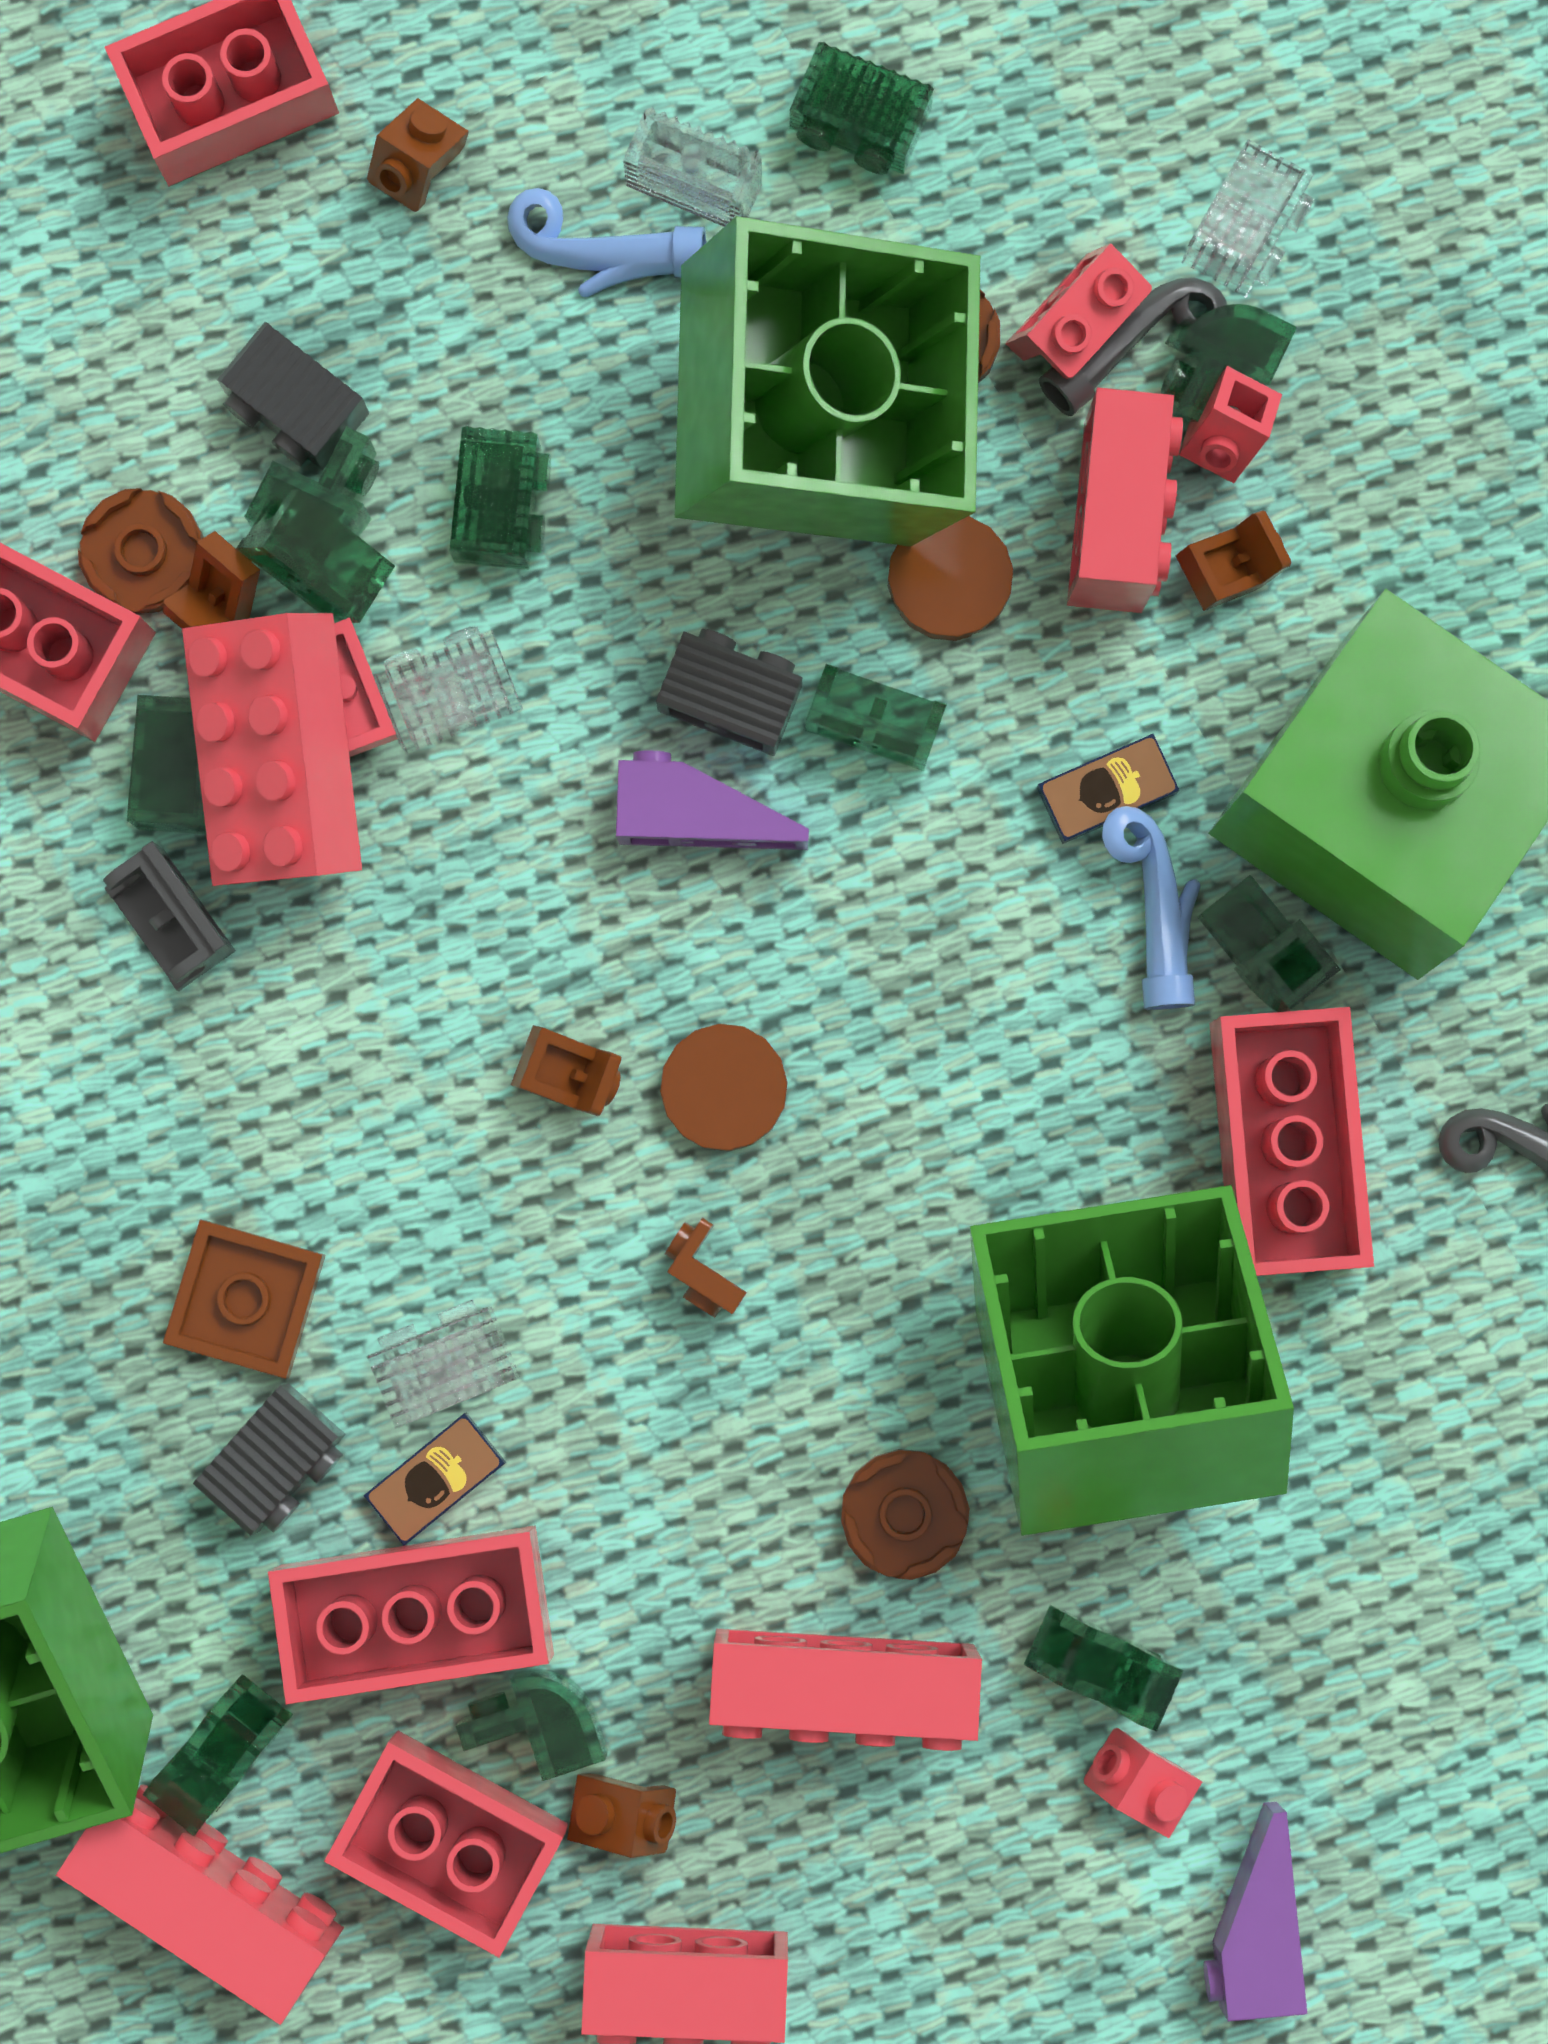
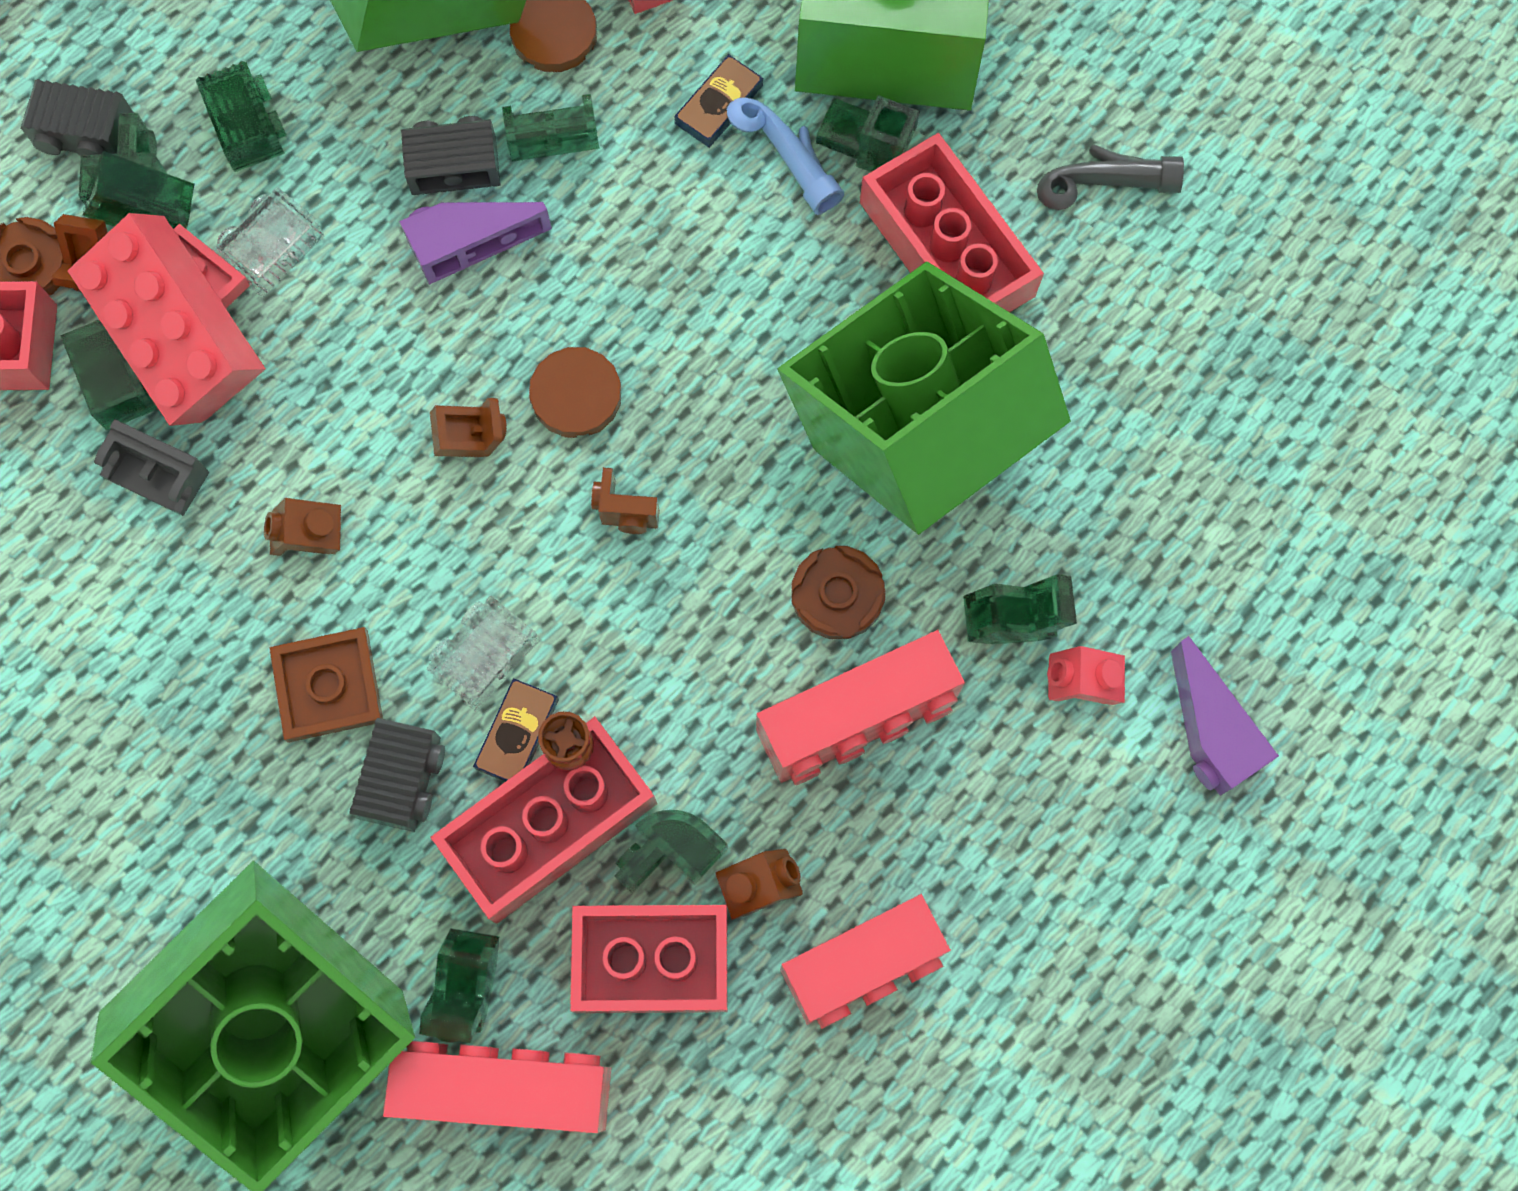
camera: 30 degrees left, 10 degrees down
(311, 1090) = (303, 527): none -> dark orange bracket
(468, 1562) = (560, 734): none -> dark orange wheel

